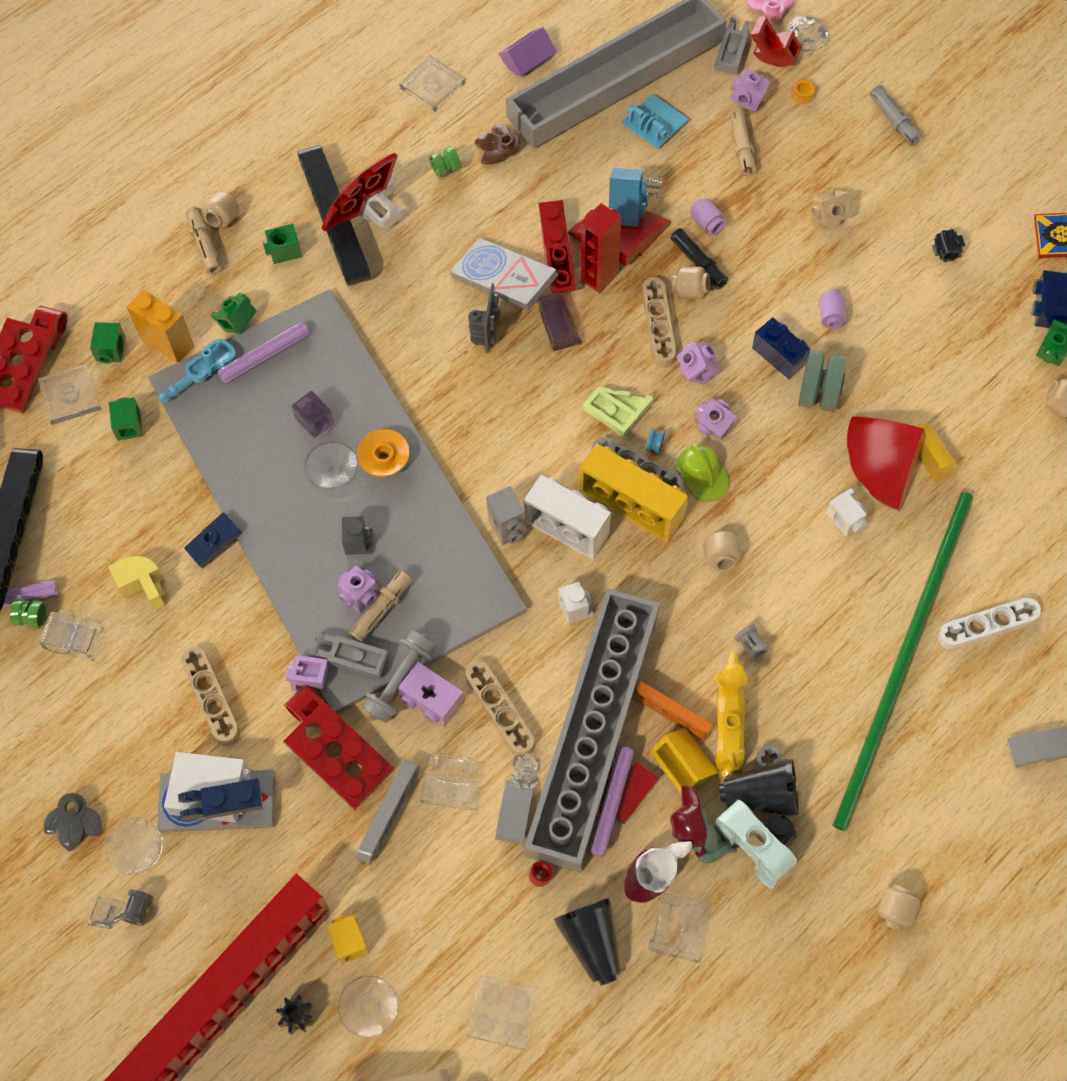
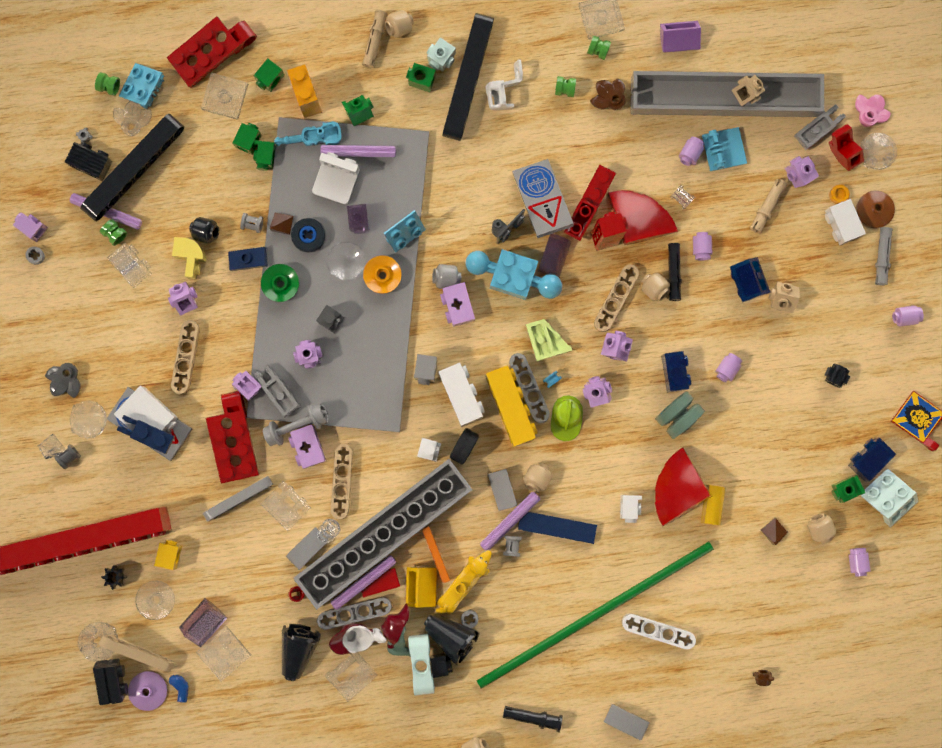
camera: 30 degrees right, 20 degrees up
(139, 540) = (204, 230): none -> black head
(157, 421) = (264, 155): none -> green brick
(162, 627) = (183, 298): none -> lavender brick
(191, 500) = (245, 223): none -> light grey bush
(228, 477) = (281, 223): none -> reddish brown slope
(257, 389) = (335, 178): none -> white bracket
(263, 527) = (278, 273): none -> green dish
(273, 479) = (318, 236): none -> black bush
(289, 208) = (441, 55): none -> light aqua brick
(365, 184) = (489, 78): red brick -> none
(375, 392) = (404, 231): none -> medium azure hinge
(387, 598) = (320, 371): tan pin -> none
(449, 992) = (202, 622): none -> brick
(452, 108) = (599, 47): none -> bright green wheel
(457, 414) = (446, 276): none -> light grey head
(492, 433) = (457, 293): none -> lavender brick
(530, 364) = (513, 274): none -> medium azure brick
(613, 568) = (464, 446): none -> black tyre
(623, 140) = (691, 151): none -> lavender brick
(628, 49) = (748, 90): none -> tan brick
(628, 195) = (655, 202): dark azure brick -> none
(630, 850) = (354, 611): none -> light grey beam
(693, 591) = (502, 490): none -> light grey slope
(728, 616) = (531, 500): none -> lavender axle
(782, 214) = (749, 279): none -> clear blue brick
(785, 590) = (558, 527): none -> dark blue tile
(831, 108) = (844, 222): none -> white brick
(850, 83) = (869, 215): none -> dark orange dish
(944, 813) = (541, 719): none -> black pin
(967, 150) = (907, 315): none -> lavender brick
(1019, 438) = (774, 531): none -> reddish brown slope

